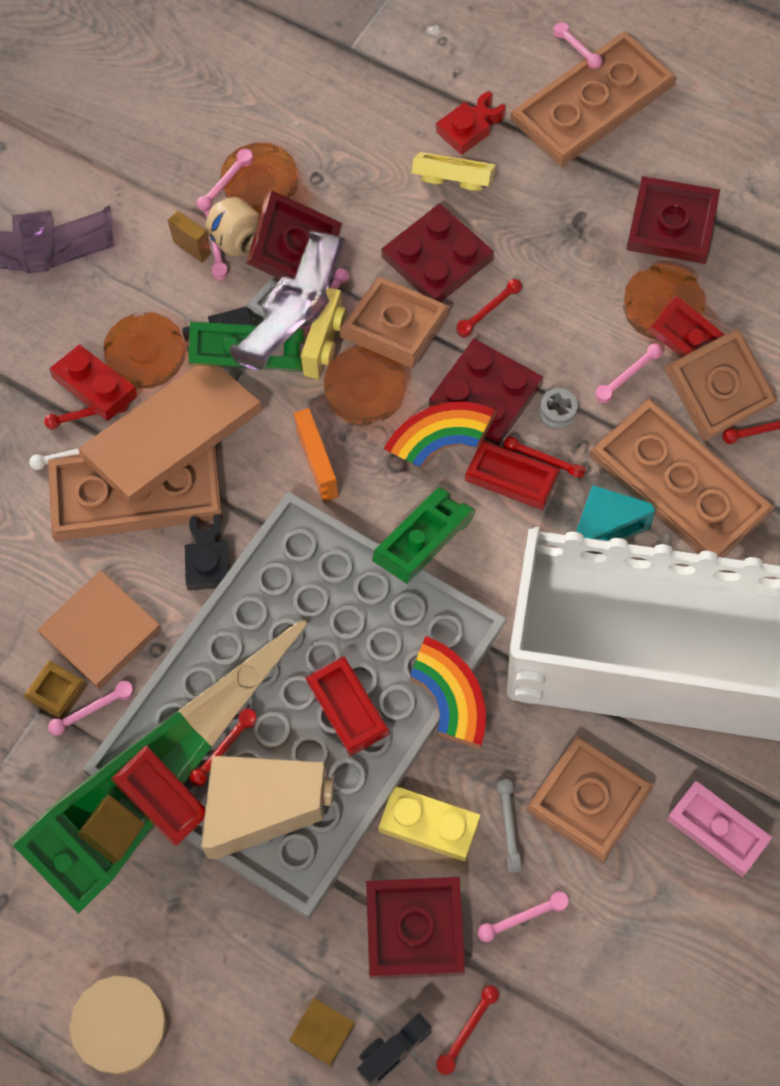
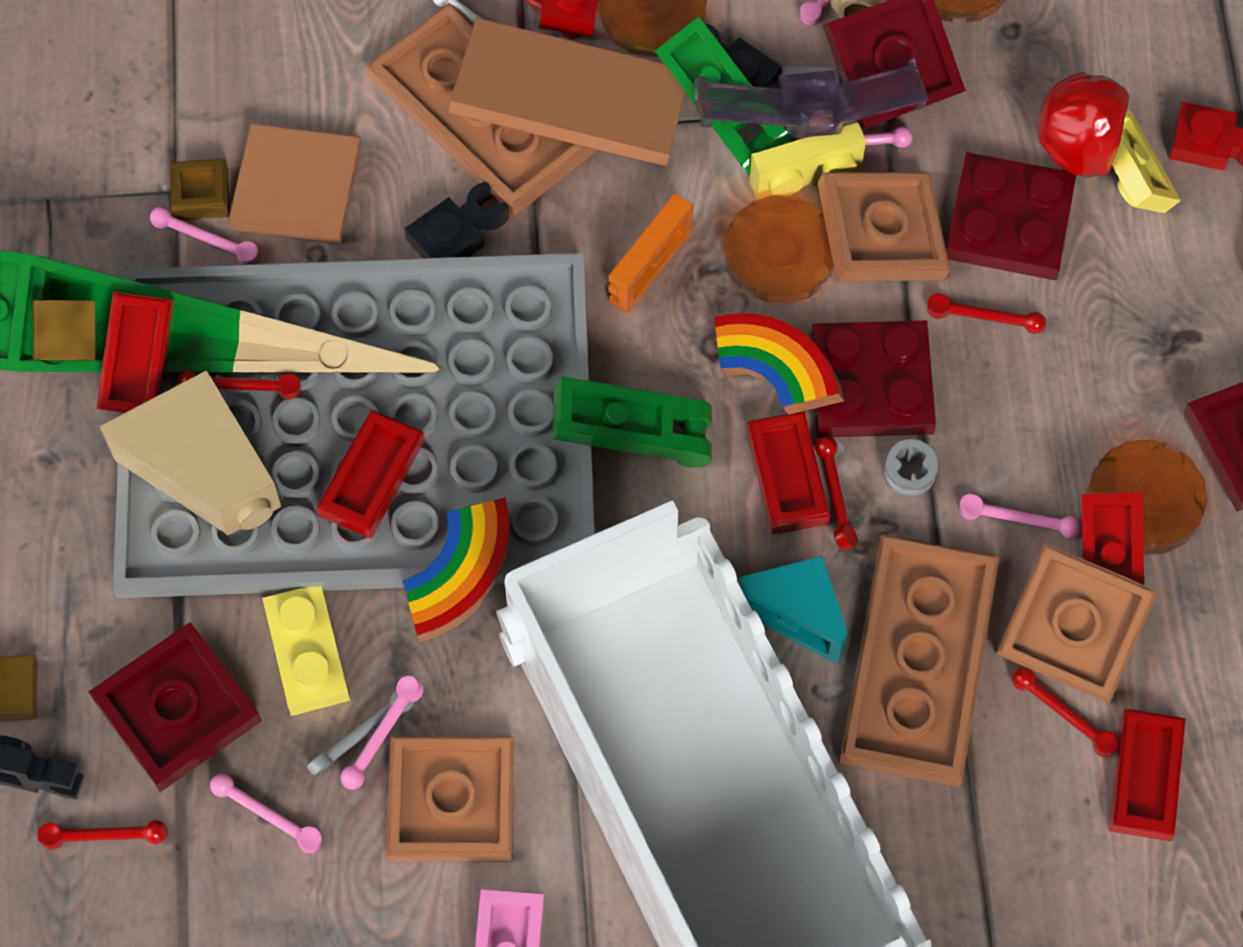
camera: 50 degrees right, 0 degrees up
(418, 175) = (1083, 123): none -> red hair
(506, 776) = (408, 690): none -> bright pink hinge

